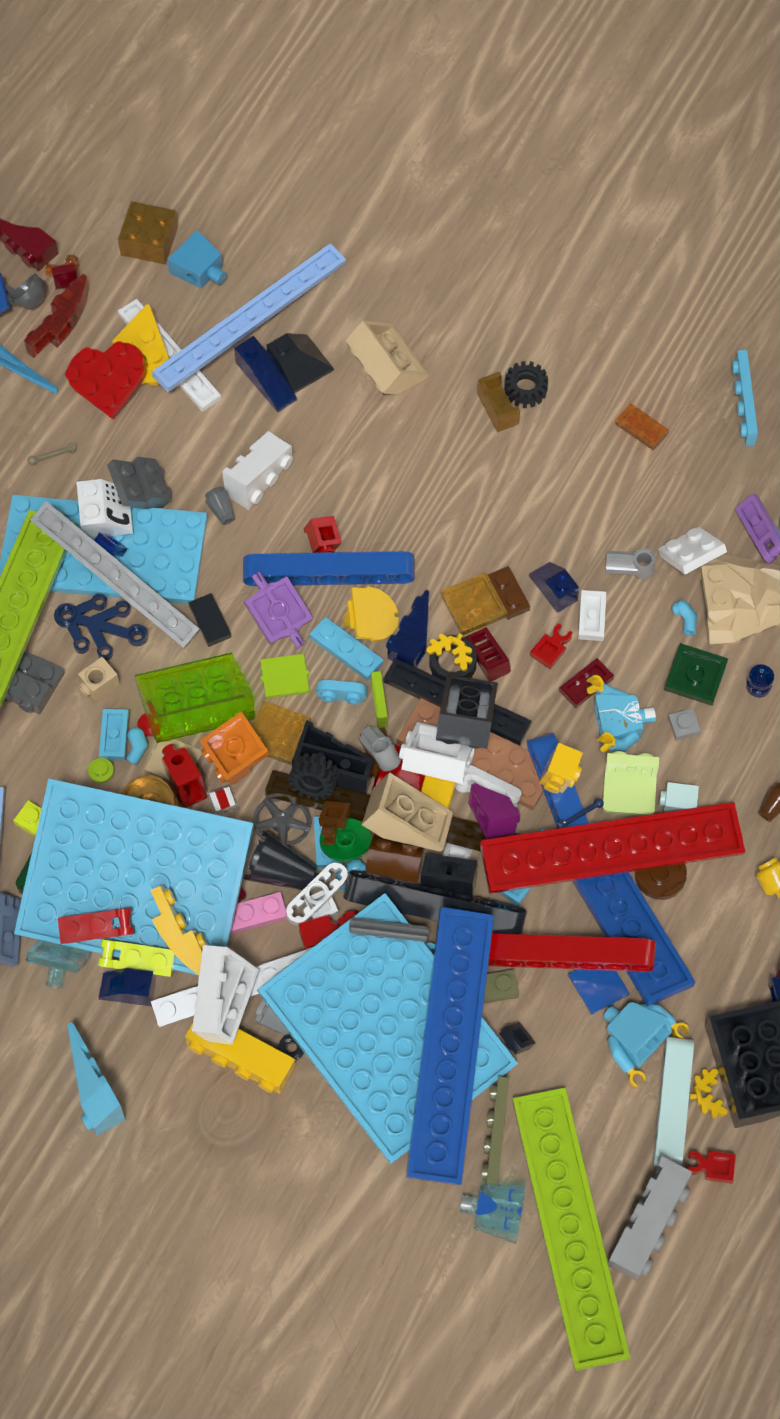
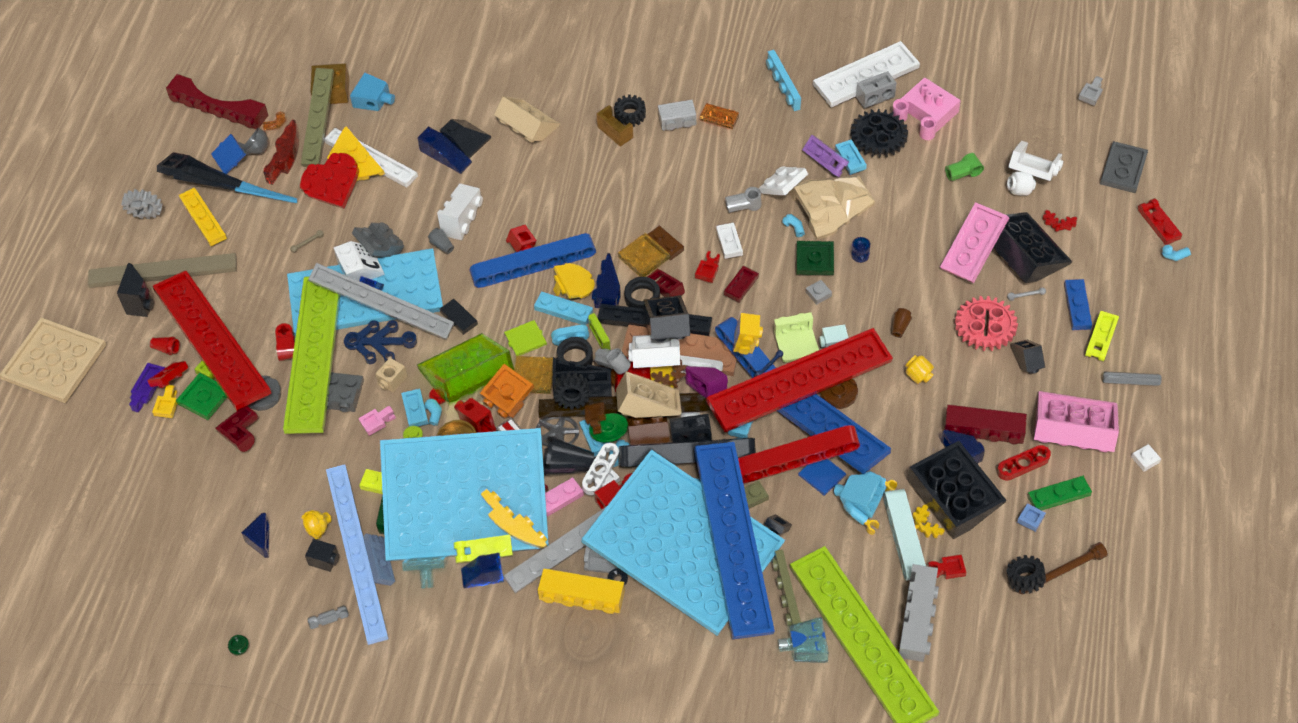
camera: 15 degrees left, 10 degrees down
(58, 737) = (375, 421): none -> bright pink plate
(64, 275) = (278, 125): dark red plate -> none
(94, 926) = (445, 535): red plate -> none
(96, 1097) = (486, 648): medium azure wedge -> none
(116, 280) = (317, 117): none -> olive plate
(222, 994) = (556, 548): white wedge -> none
(248, 317) = (419, 118): light blue plate -> none
(278, 610) = (506, 295): medium lavender plate -> none
(345, 704) = (575, 343): none -> black tyre
(388, 929) = (662, 472): dark grey axle -> none
(440, 795) = (677, 375): none -> reddish brown animal
(461, 650) = (648, 284): yellow animal -> none
(556, 585) = (697, 228): clear blue slope -> none
(586, 409) = (677, 115): none -> light grey brick
(618, 716) = (770, 297): medium azure torso -> none

